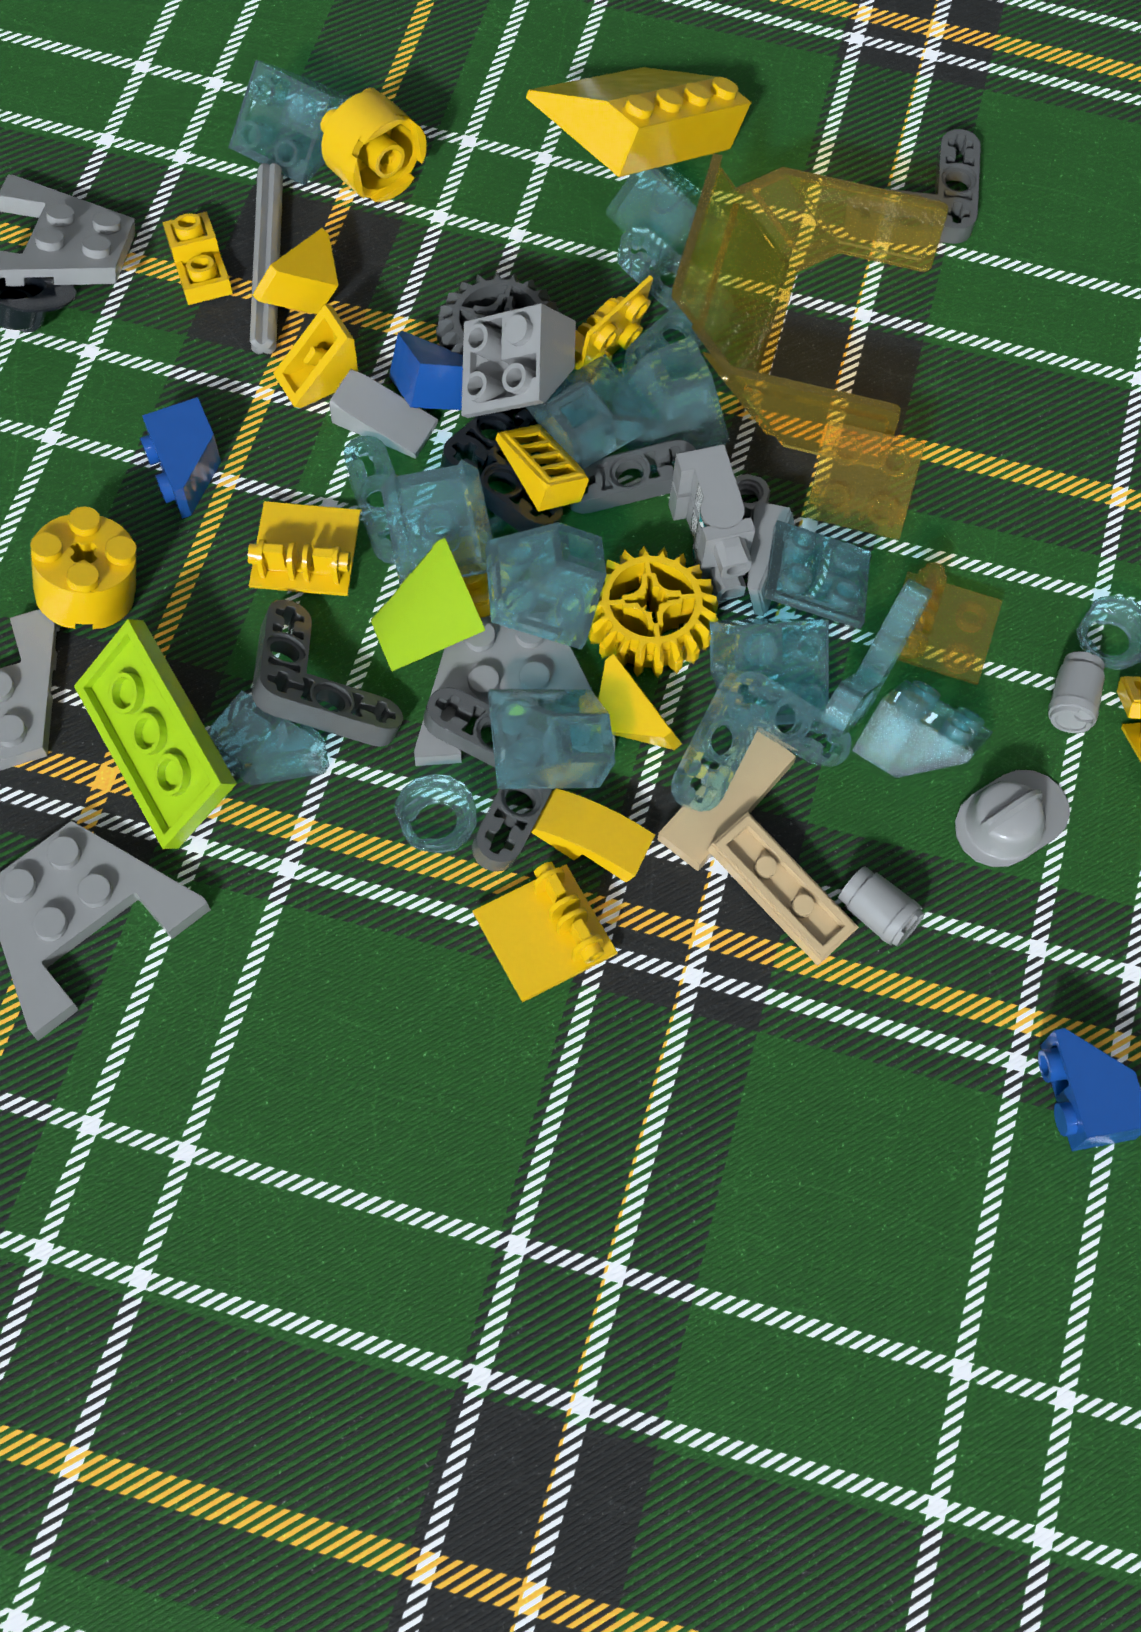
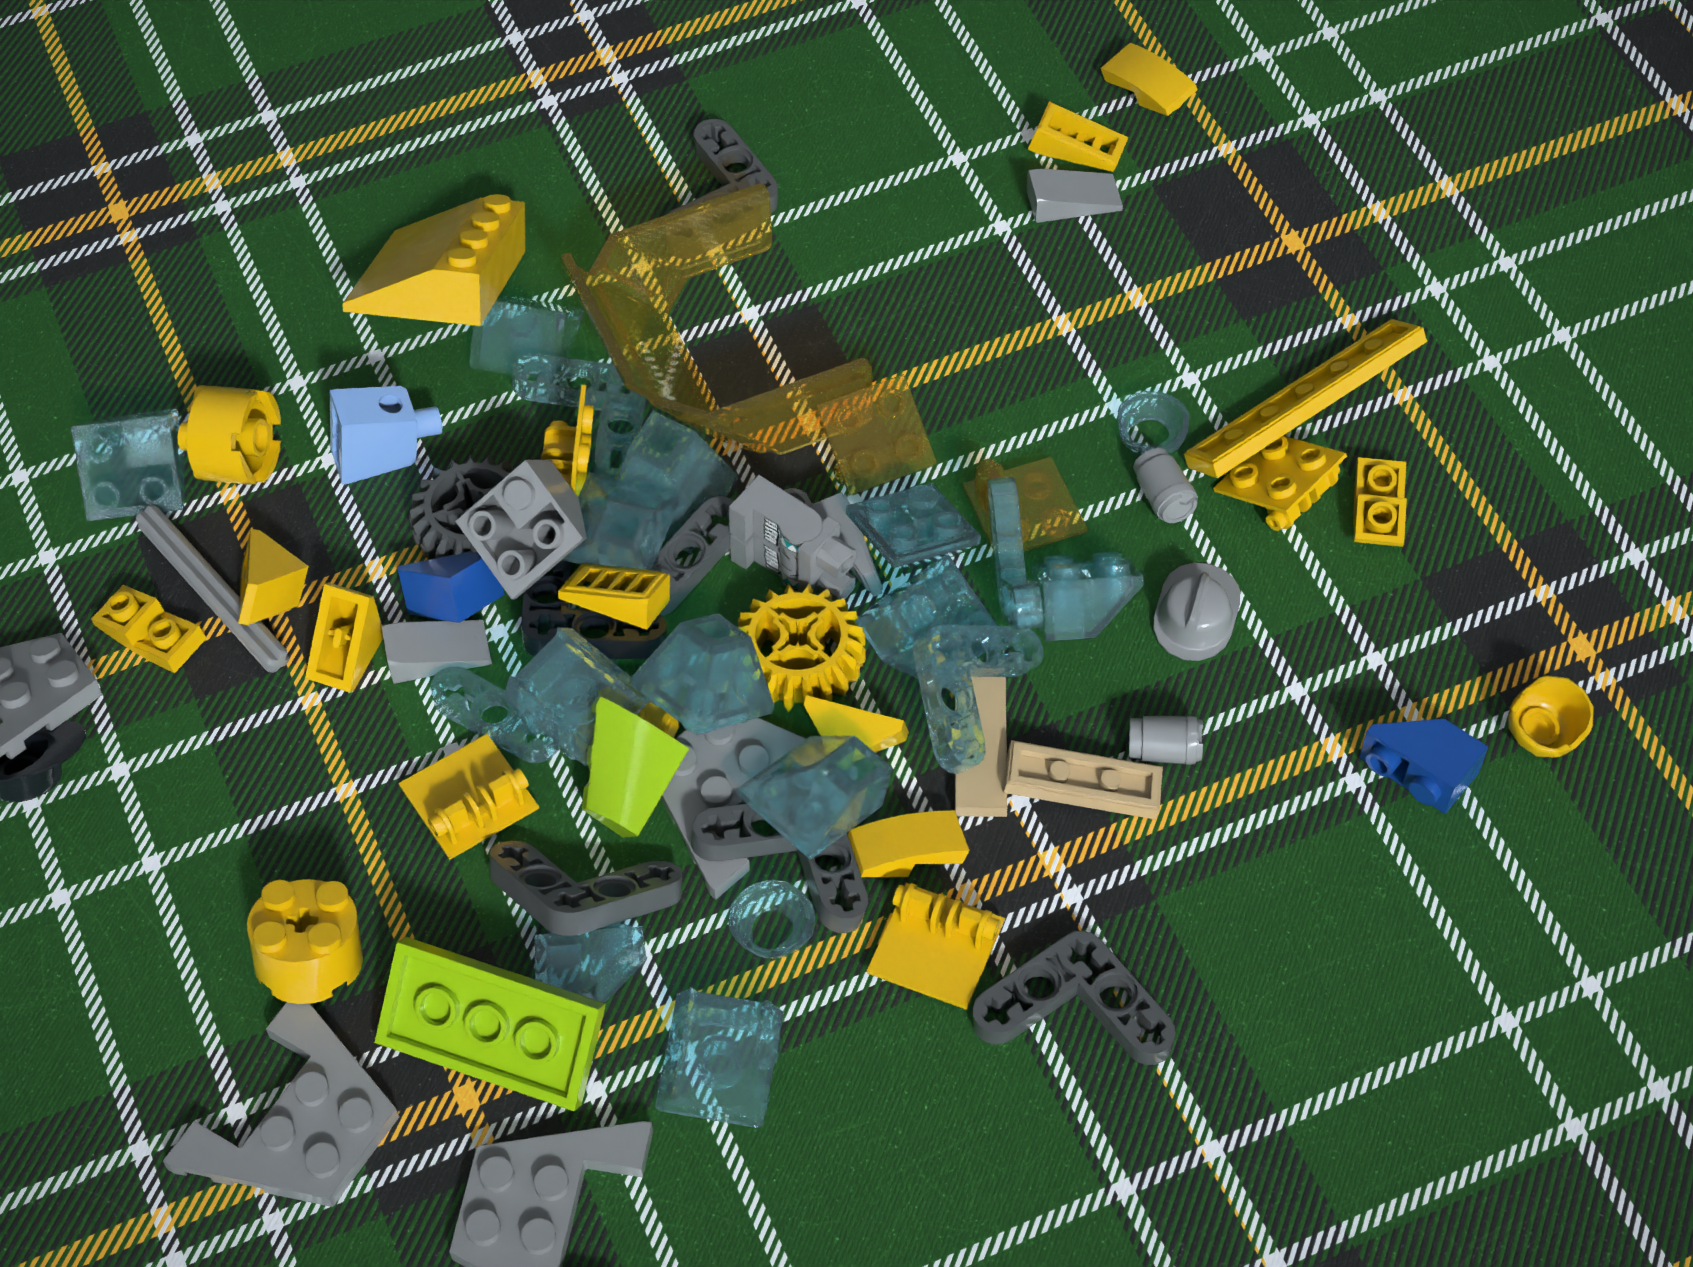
camera: 35 degrees left, 10 degrees down
(186, 451) = (290, 788): blue slope -> none
(300, 894) = (720, 1058): none -> clear light blue slope
(481, 212) = (376, 430): none -> light blue torso
(620, 1044) = (1068, 982): none -> dark grey beam

